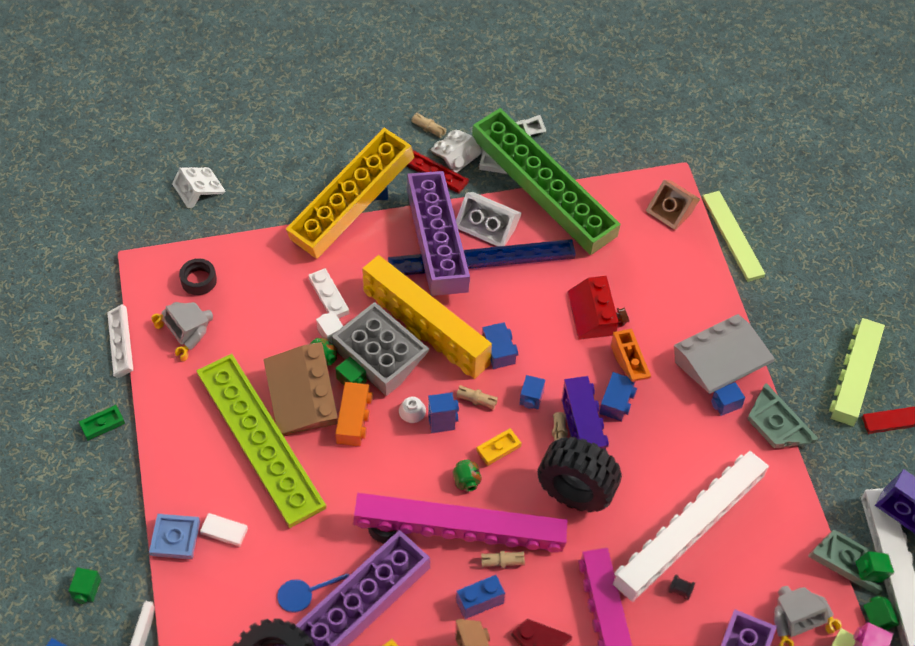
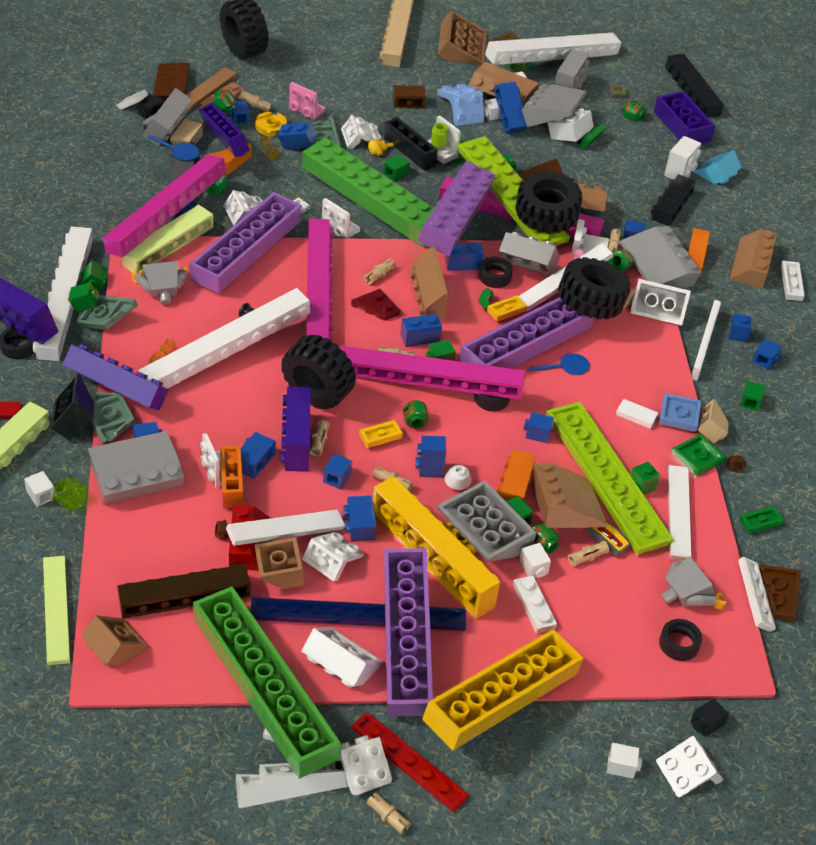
camera: 175 degrees left, 10 degrees down
(94, 348) = (781, 590): none -> reddish brown wing
(117, 489) = (740, 466): none -> reddish brown plate
(138, 530) = (713, 422): none -> tan slope
(158, 487) = (698, 455): none -> green tile
(179, 221) = (709, 717): none -> black brick
(187, 413) = (679, 512): none -> white tile
(221, 434) = (645, 477): none -> green brick
(252, 179) = (623, 760): none -> white brick
(255, 366) = (614, 538): none -> slope
(280, 347) = (577, 557): none -> tan pin
(333, 483) = (538, 427): none -> blue brick
(452, 565) = (441, 350): none -> green brick
(514, 309) = (330, 554): none -> white bracket
(559, 281) = (280, 563): none -> medium nougat slope
(563, 311) = (285, 527): none -> white tile
(634, 251) = (180, 590): none -> dark brown brick
(658, 384) = (211, 460): none -> white bracket
(756, 513) = (165, 349): none -> piece
(771, 329) = (70, 493): none -> clear neon green brick
(789, 456) = (116, 377): none -> dark purple brick
(801, 335) = (39, 488): none -> white brick
(812, 411) = (72, 409): none -> black slope

